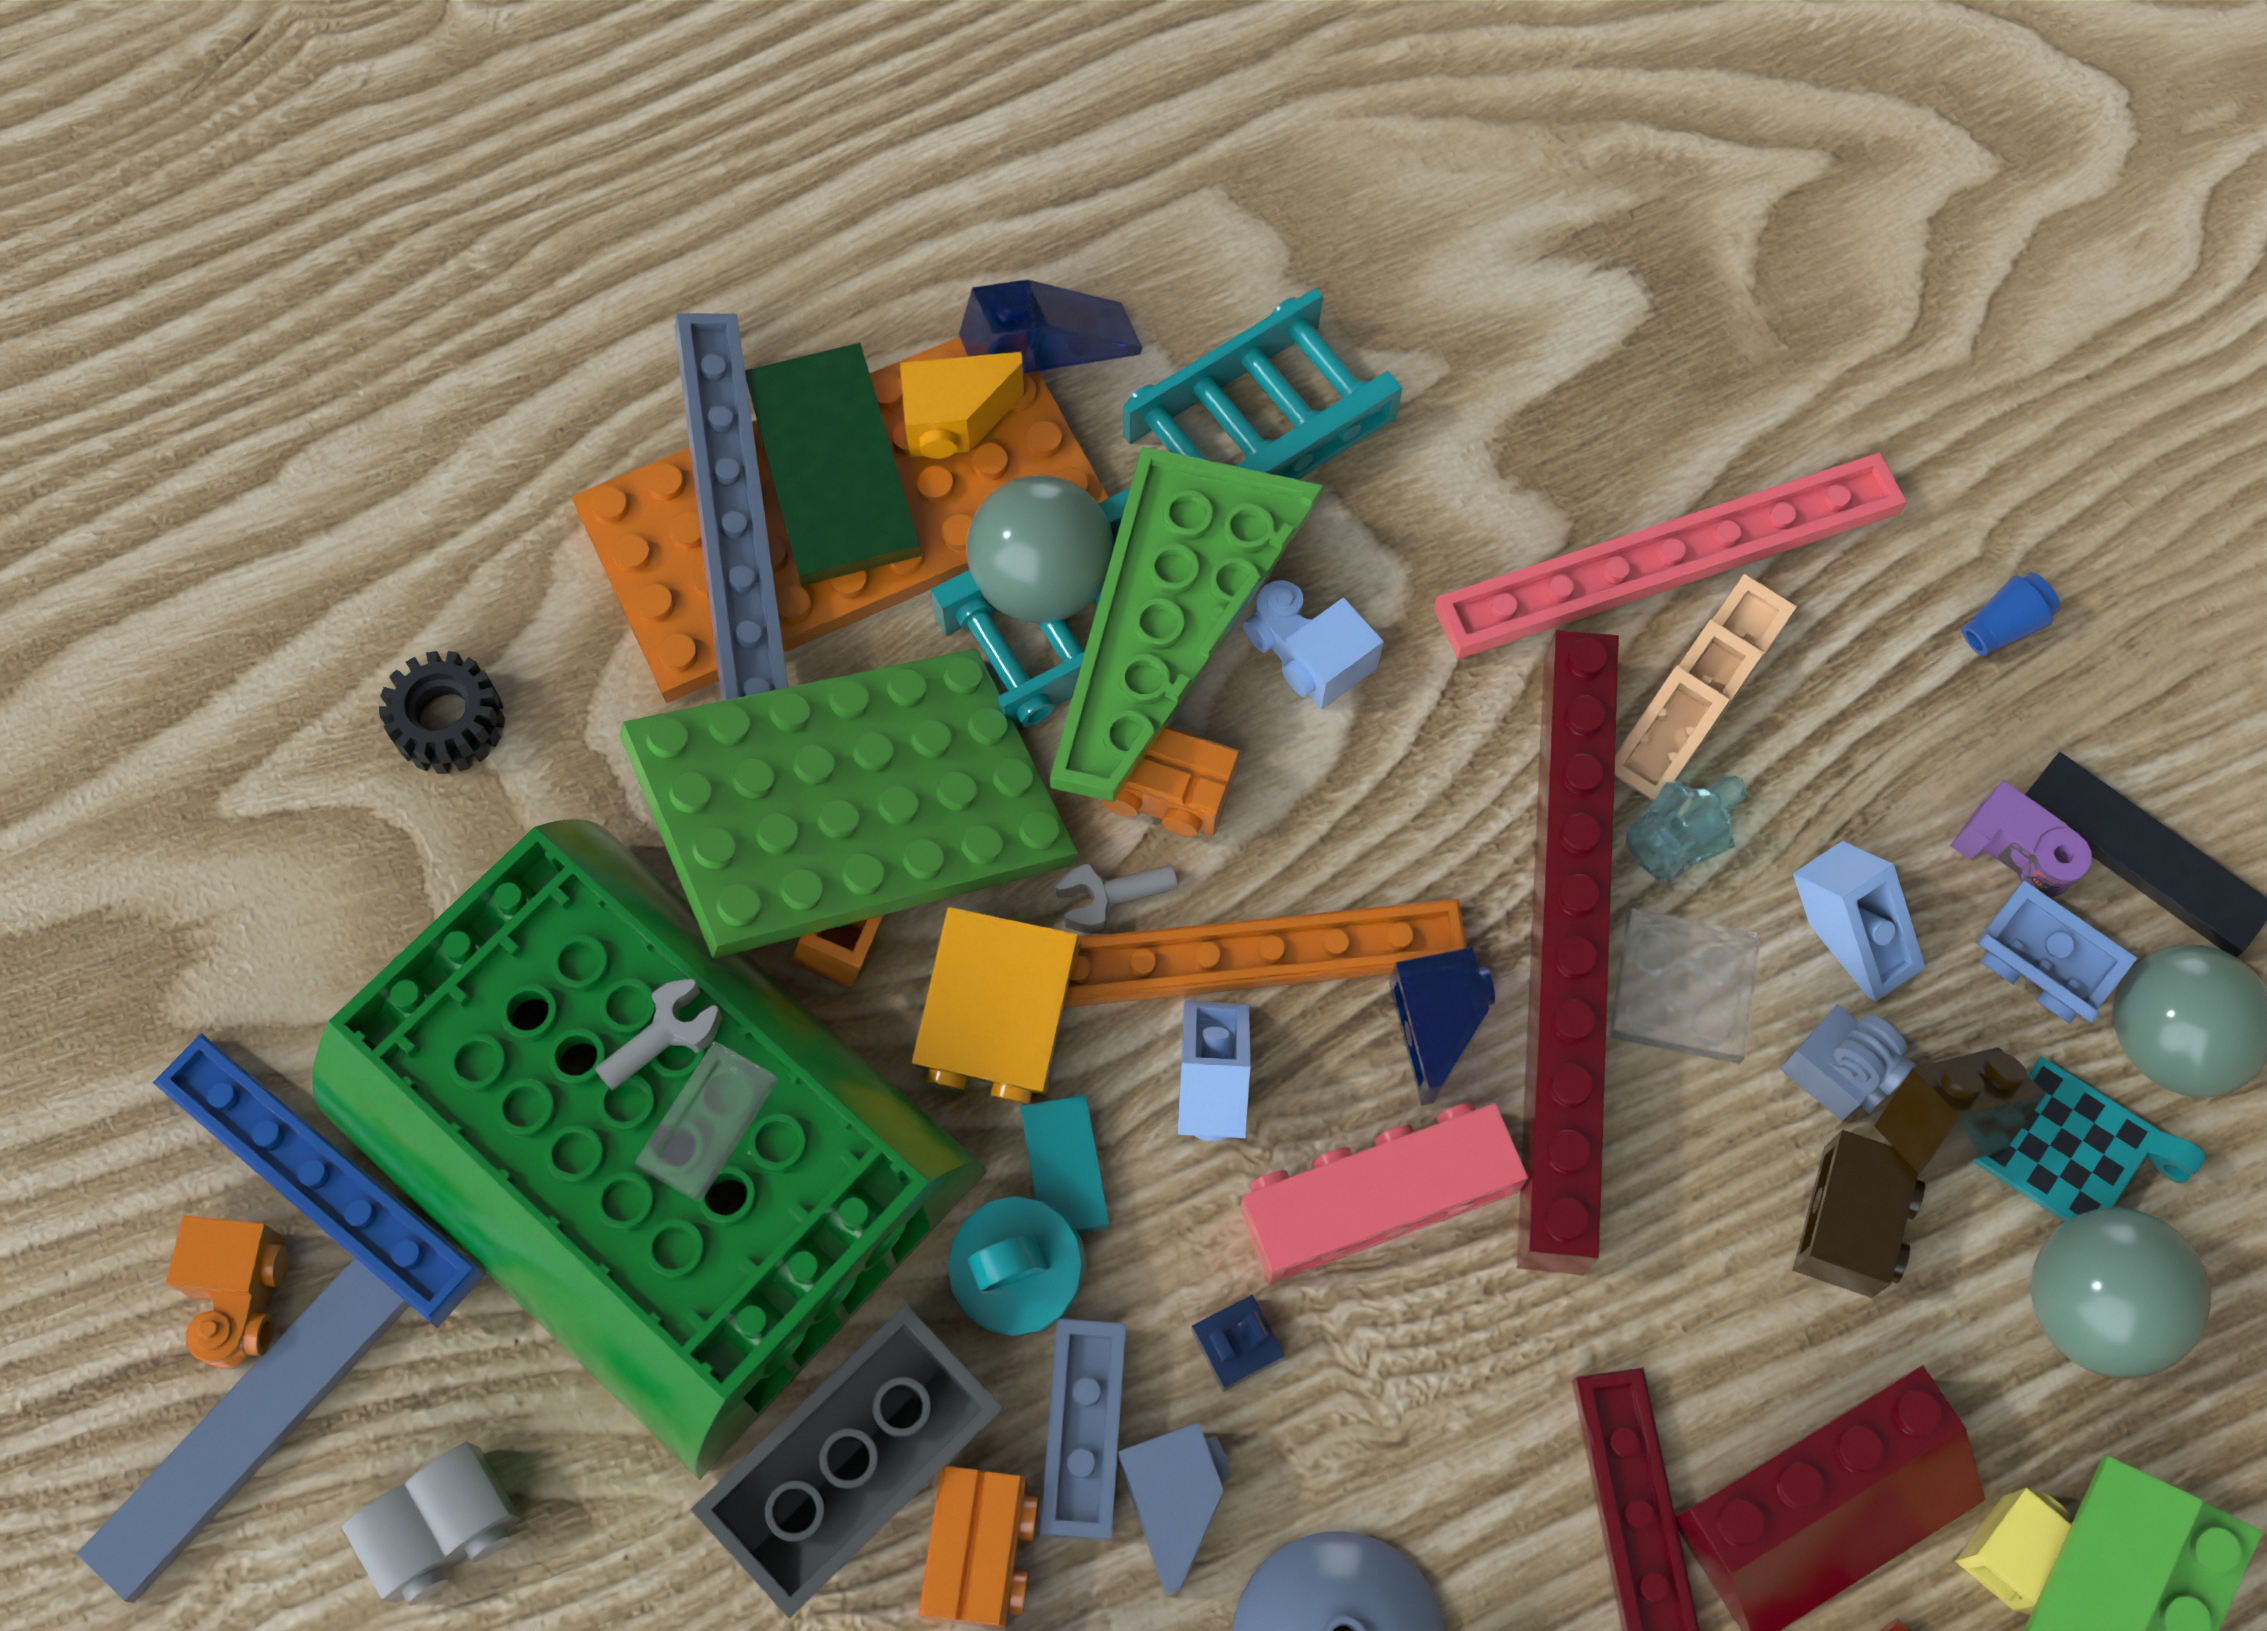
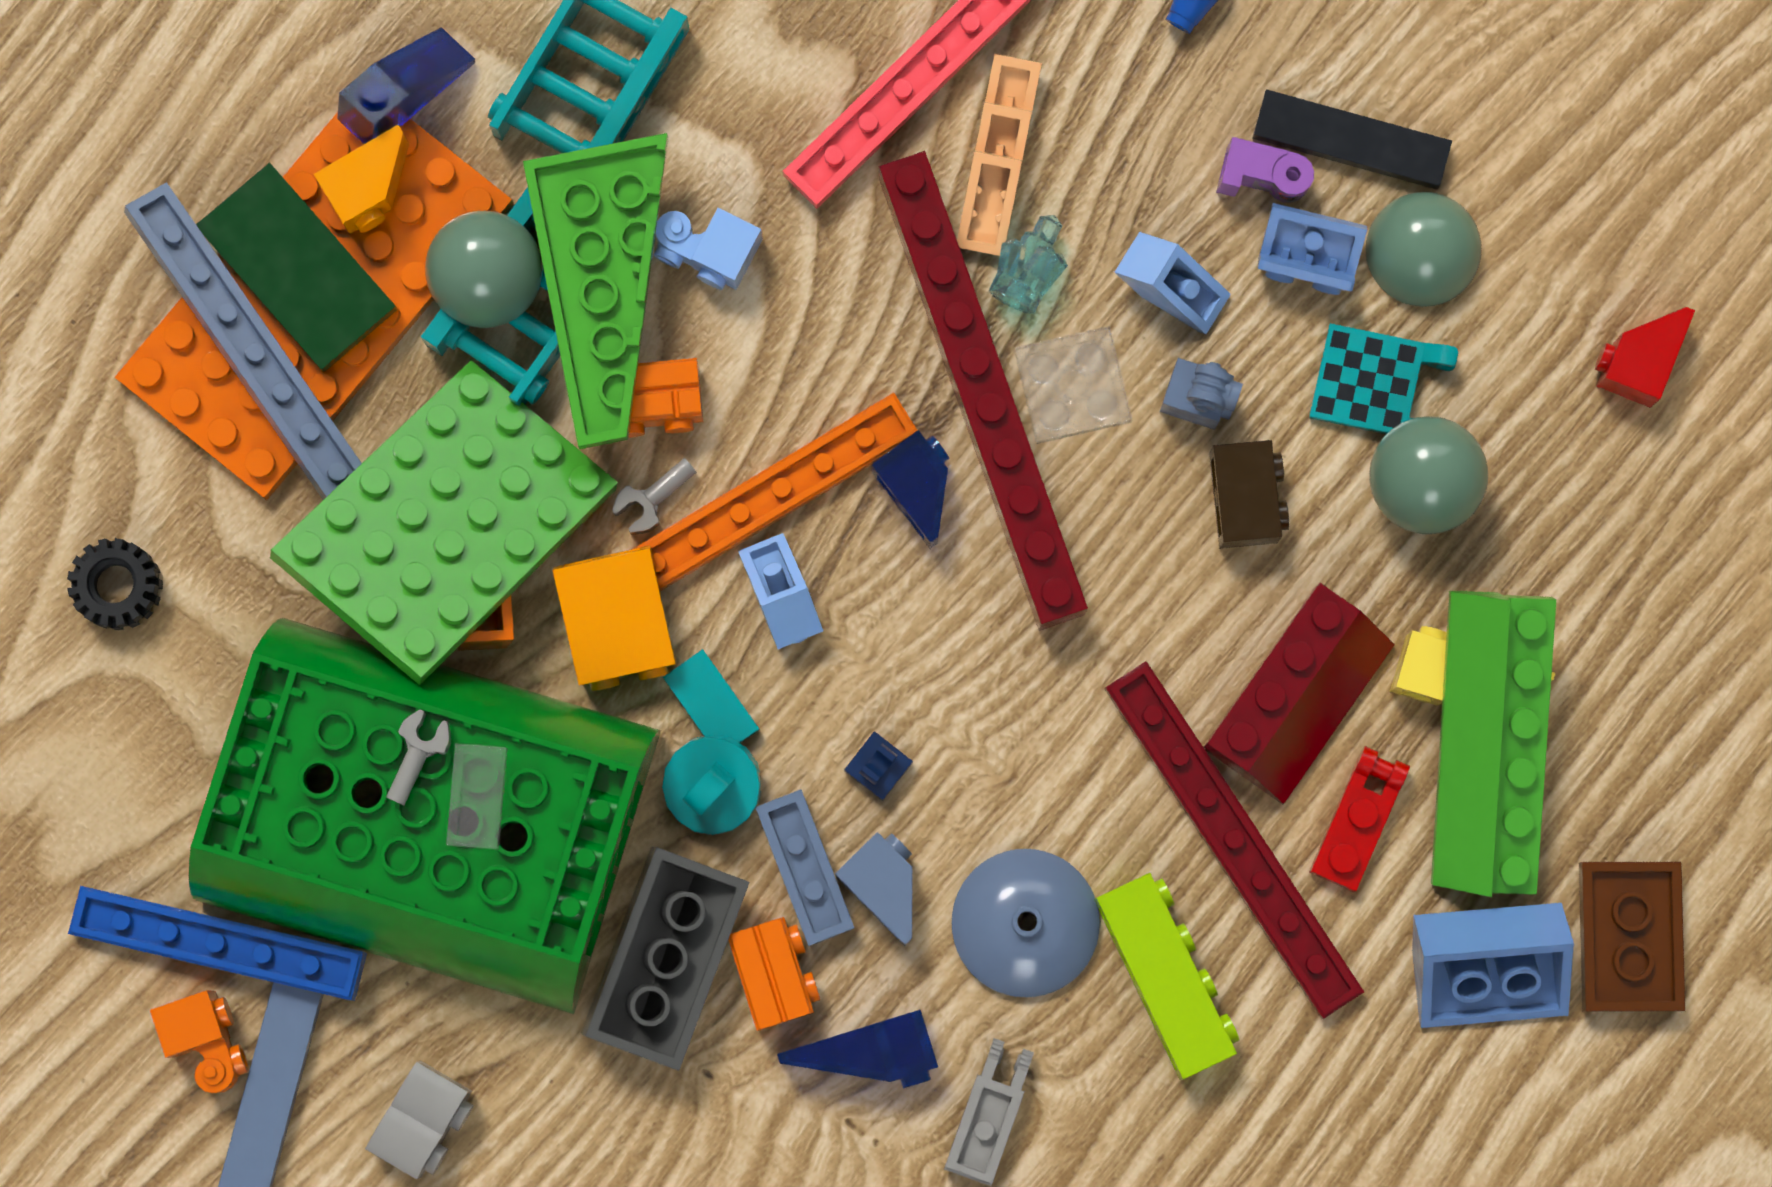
camera: 25 degrees left, 15 degrees up
(1382, 1191) = (929, 624): coral brick -> none
(1959, 1109) = (1284, 397): dark brown brick -> none

